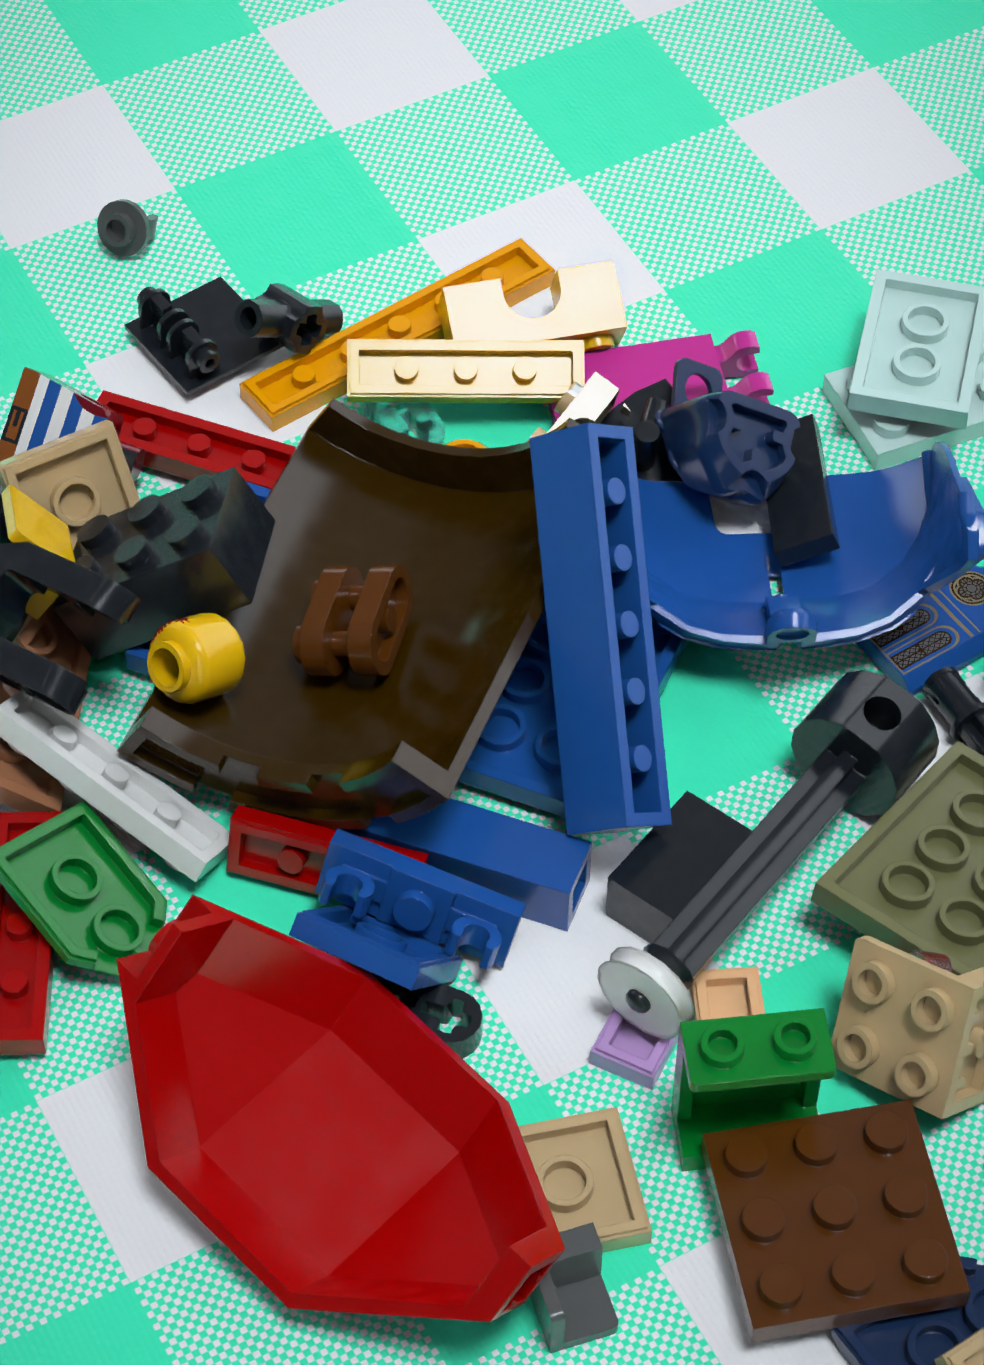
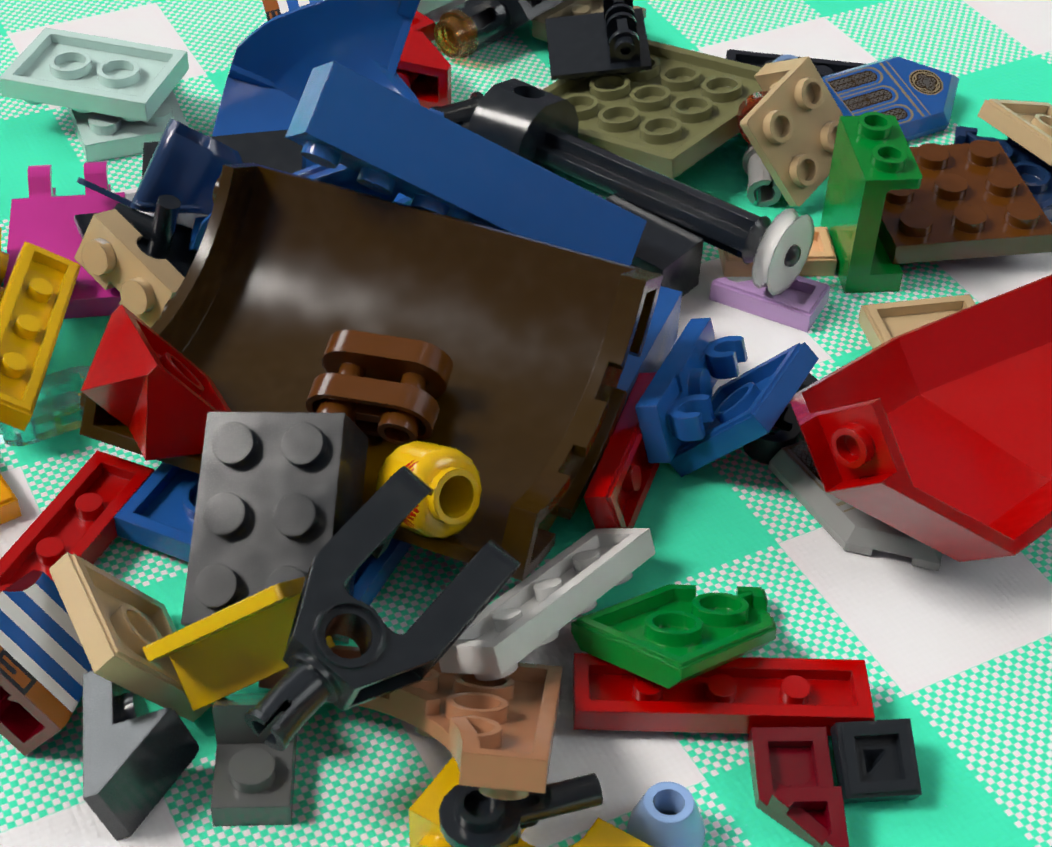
camera: 90 degrees left, 10 degrees down
(331, 461) = (151, 388): none -> red slope

